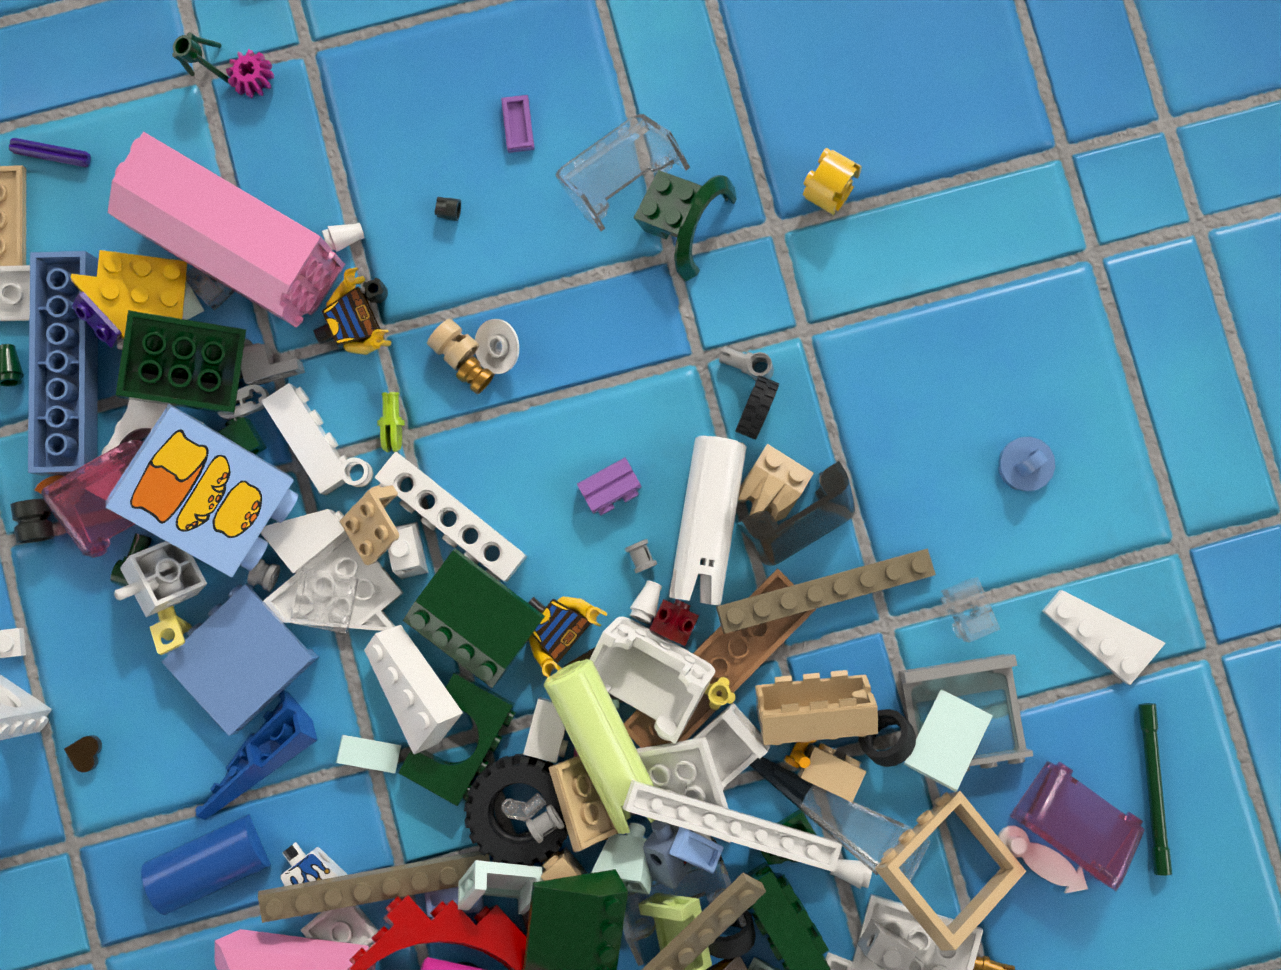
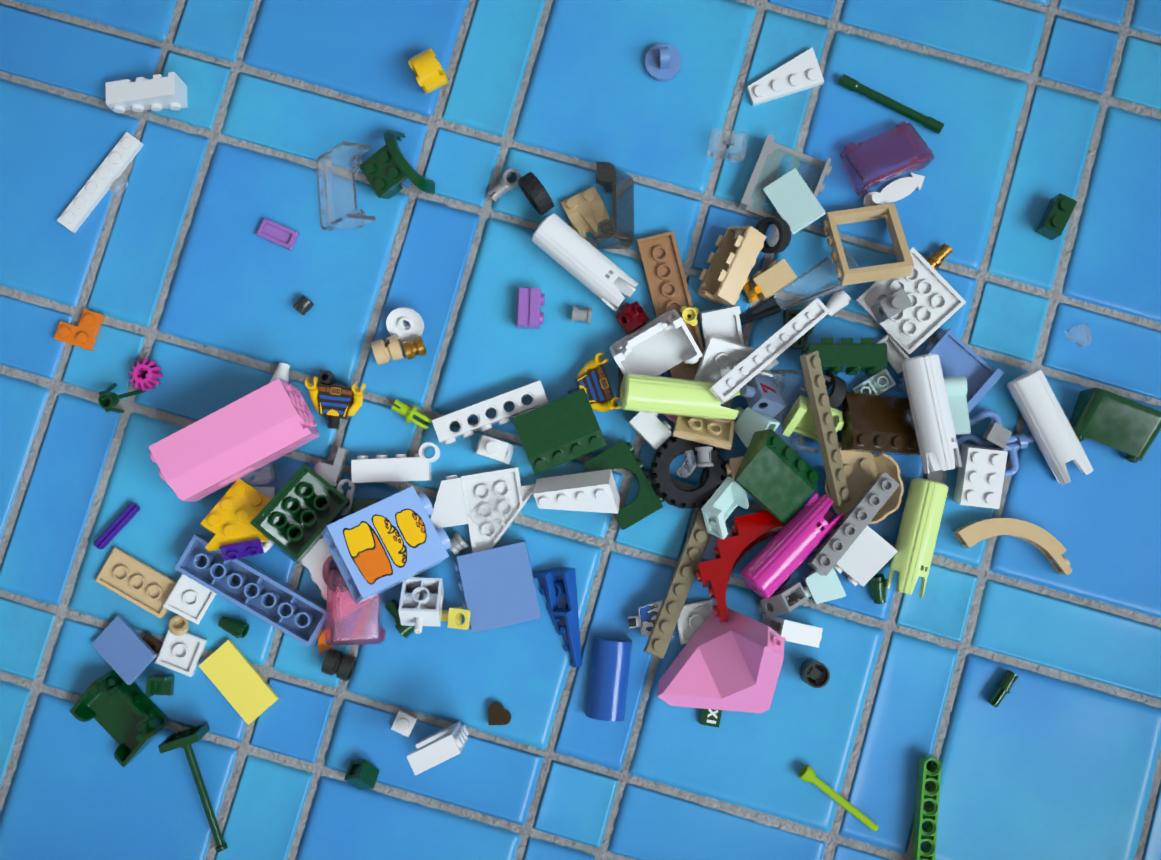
camera: 60 degrees left, 0 degrees up
(368, 754) = (601, 543): light aqua slope -> none
(370, 525) = (467, 459): tan bracket -> none
(646, 603) = (611, 328): white cone -> none
(696, 850) = (771, 379): light blue tile -> none
(825, 591) = (666, 220): dark tan plate -> none

